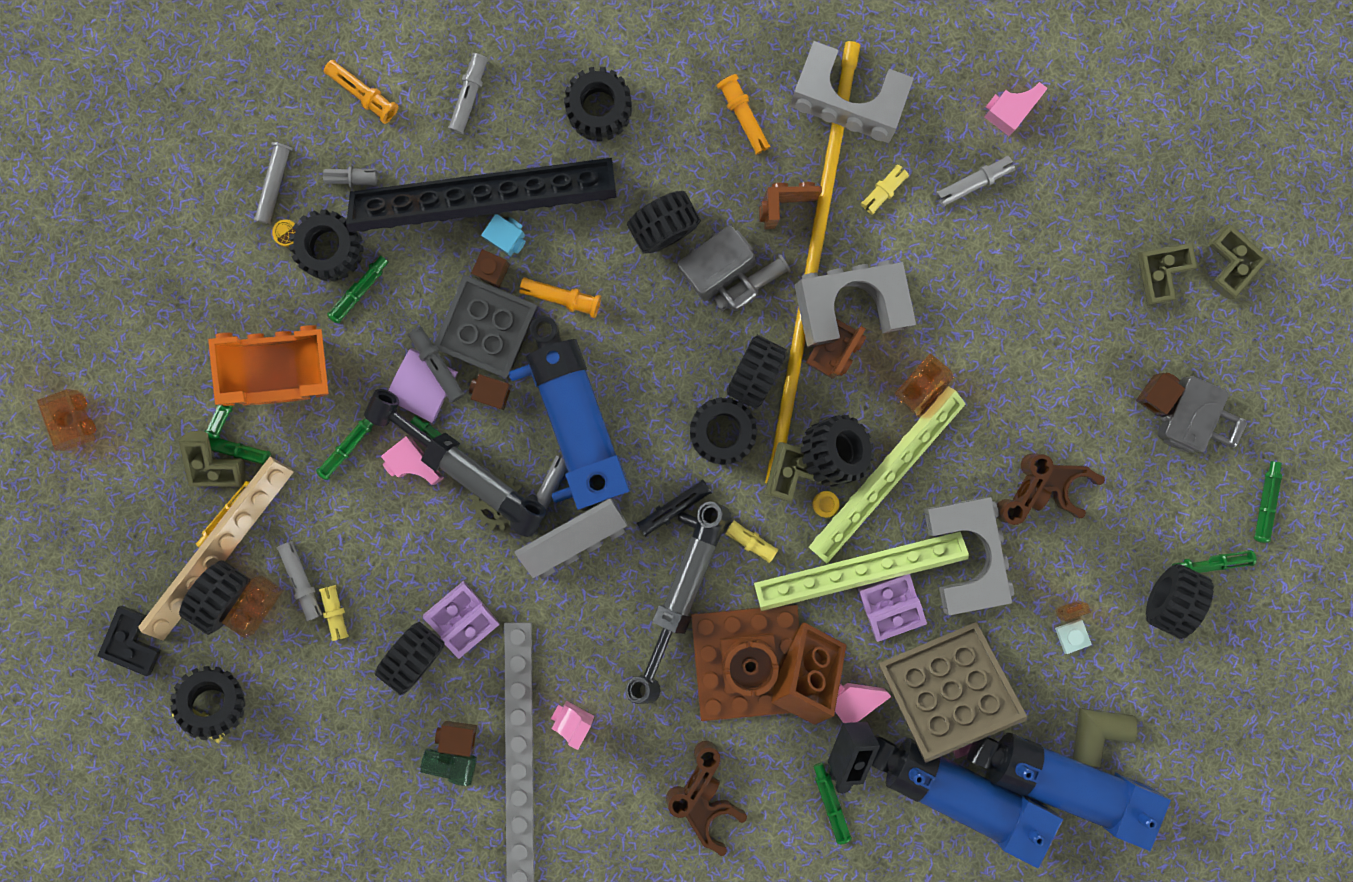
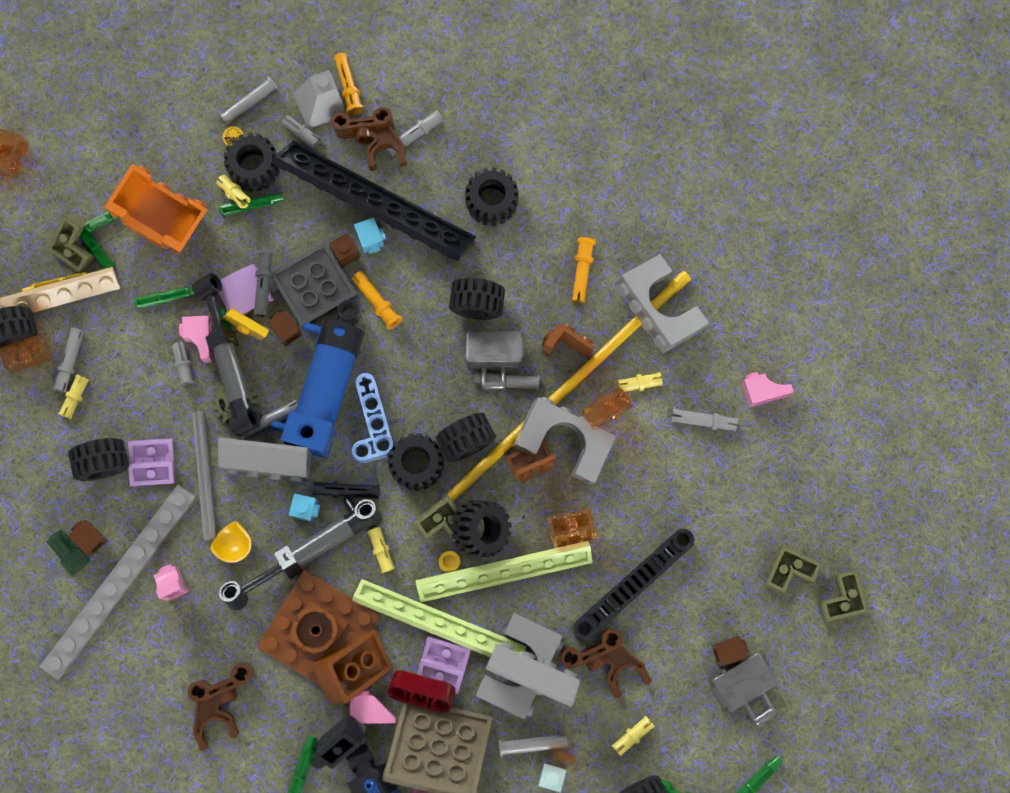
camera: 35 degrees right, 10 degrees down
(331, 290) = (233, 191): none -> light yellow pin
(344, 129) = (318, 99): none -> light grey slope
(416, 501) = (183, 363): none -> light grey axle
(422, 123) = (372, 129): none -> reddish brown piece
(451, 419) = (245, 325): none -> yellow plate
(523, 595) = (204, 475): none -> light grey axle
(602, 642) = (232, 543): none -> yellow helmet
(644, 419) = (372, 416): none -> light blue beam
(647, 556) = (304, 508): none -> medium azure brick
(875, 240) = (607, 408): none -> clear orange brick
(892, 648) = (421, 691): none -> dark red beam
(995, 557) = (533, 674): none -> light grey slope
(1022, 395) = (634, 584): none -> black gear
(1033, 619) = (532, 744): none -> light grey pin
(1122, 541) = (633, 736): none -> light yellow pin

